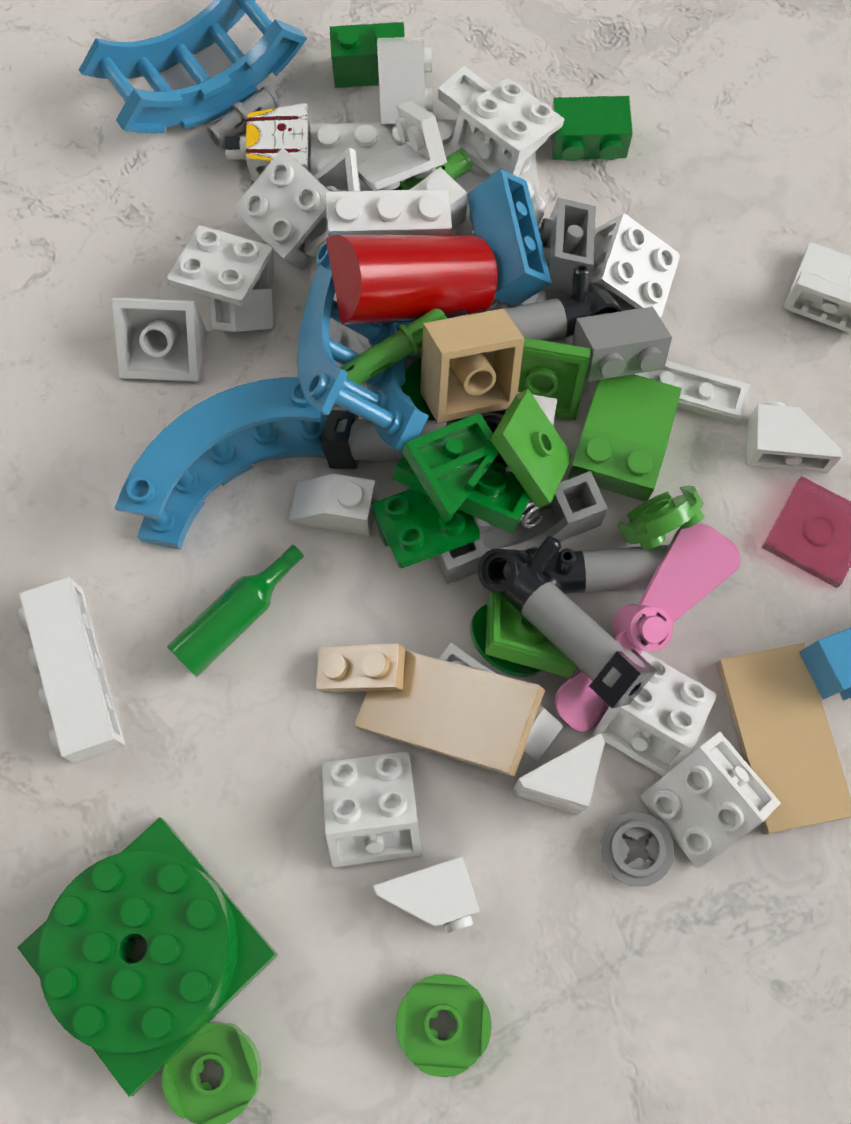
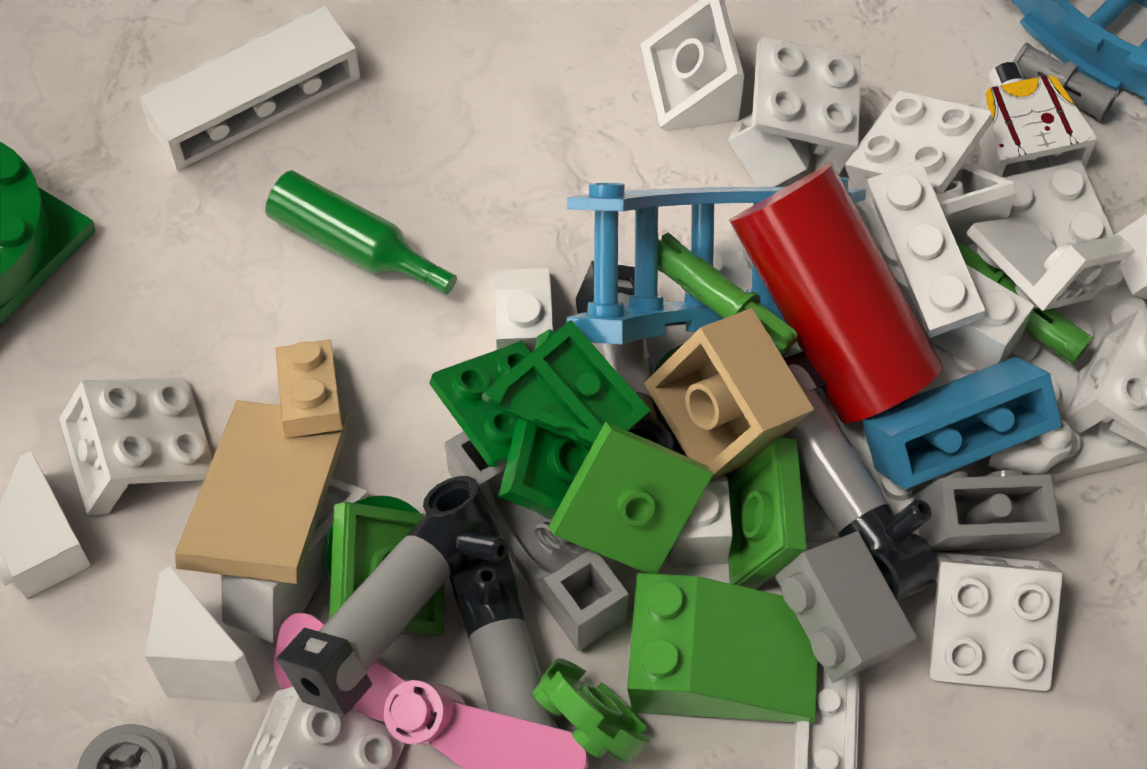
camera: 75 degrees right, 10 degrees down
(212, 448) = (555, 162): dark azure fence -> none

